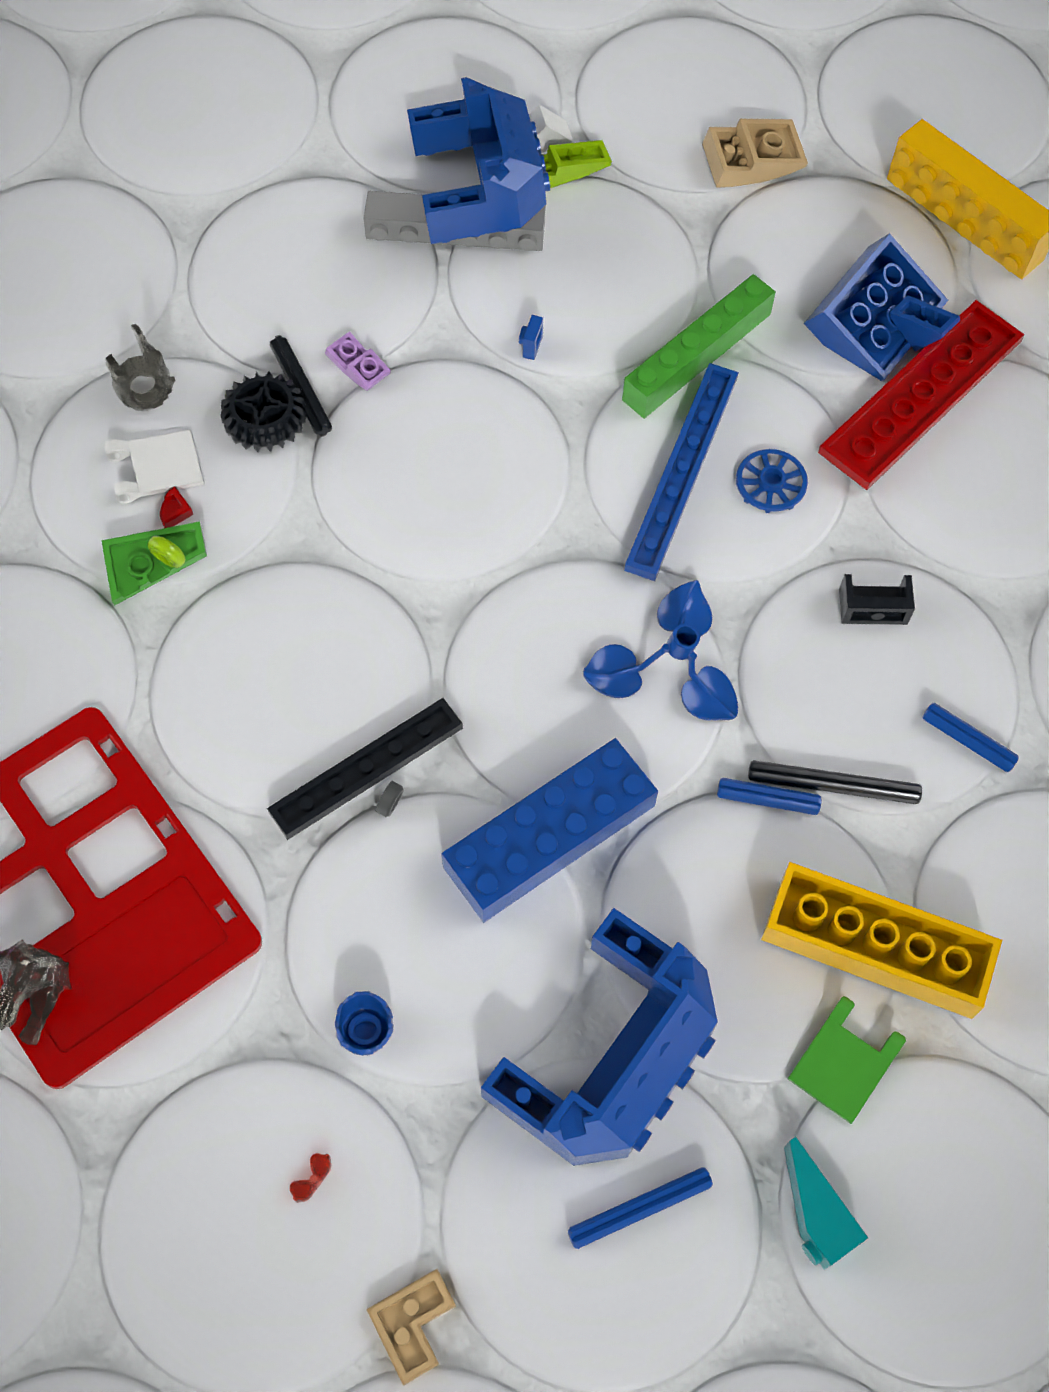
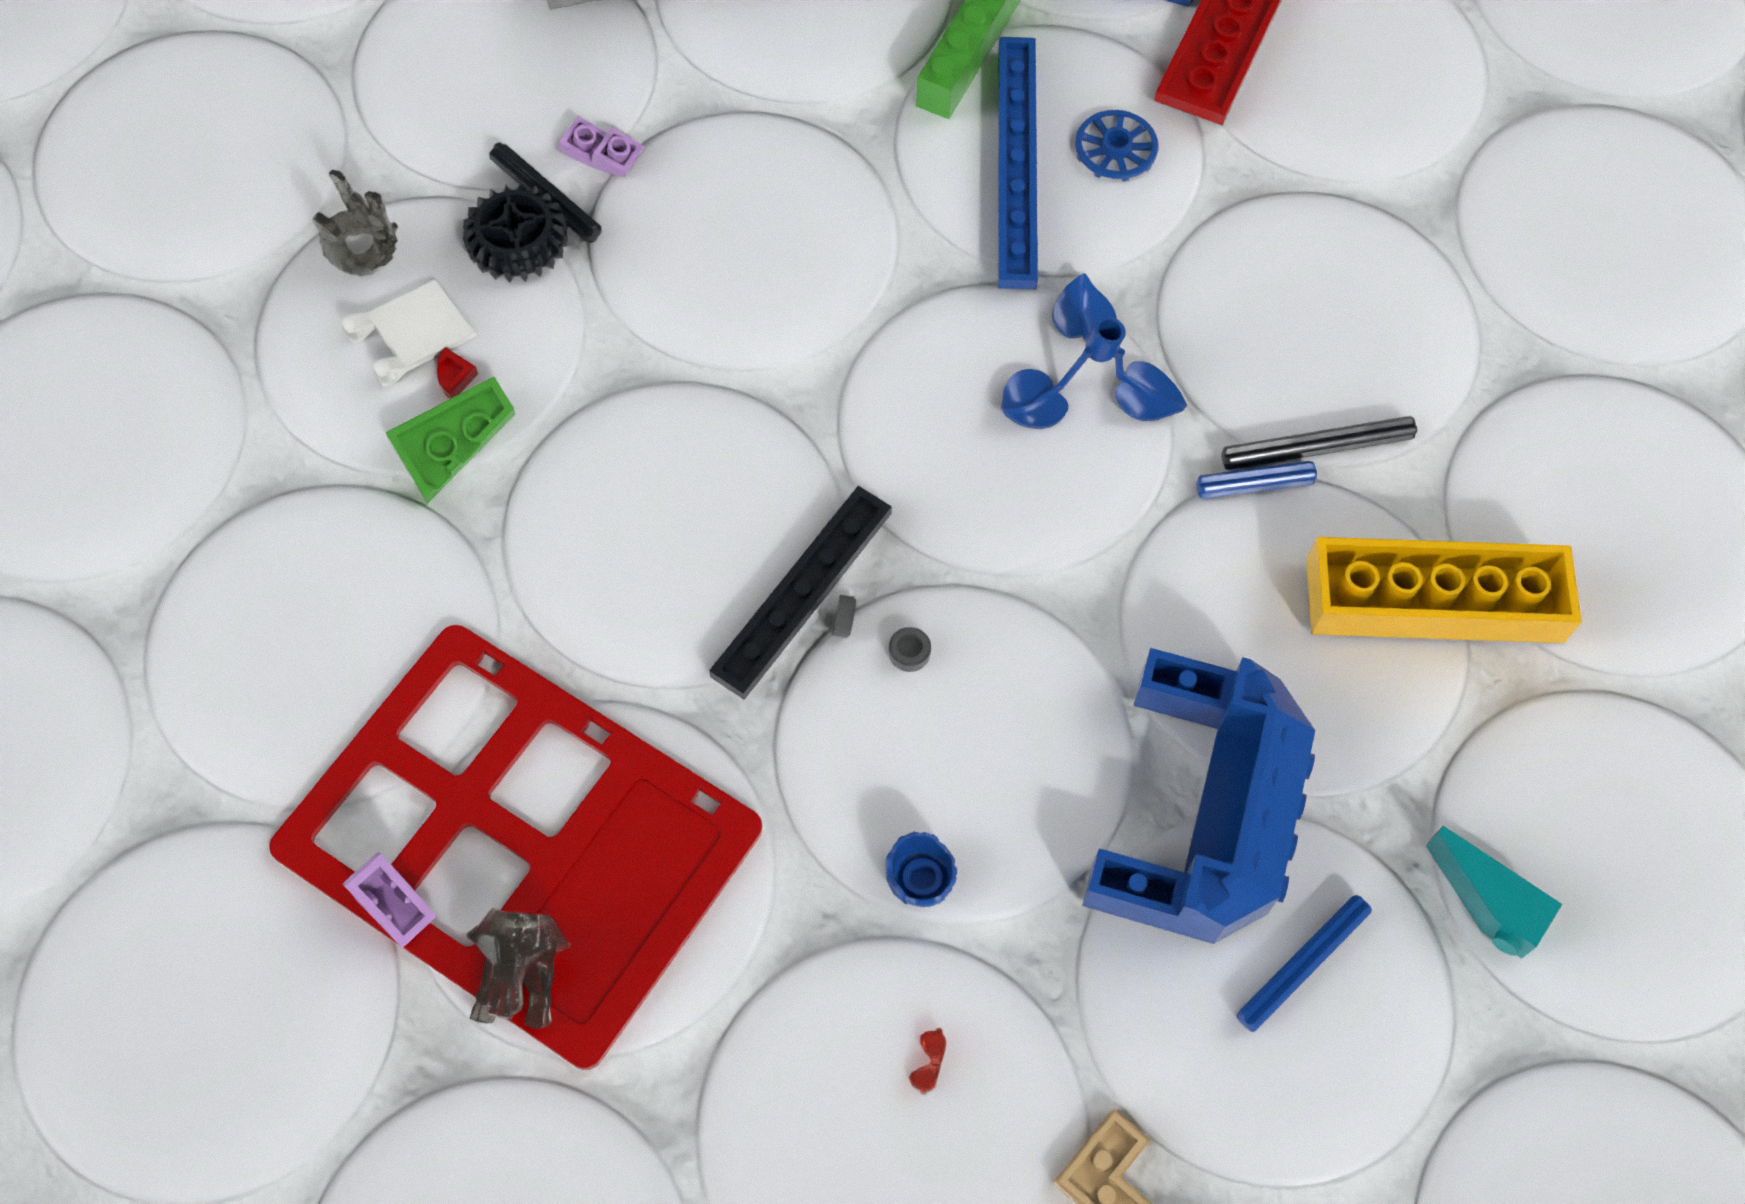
camera: 20 degrees left, 0 degrees up
(166, 551) = (471, 420): lime piece -> none
(431, 842) = (909, 649): none -> dark grey tile
(531, 337) = (789, 64): blue plate -> none
(549, 829) = (1036, 591): blue brick -> none
(842, 1067) = (1452, 739): bright green flag -> none
(876, 603) = (1284, 241): black panel -> none
(970, 737) = (1440, 351): blue axle -> none

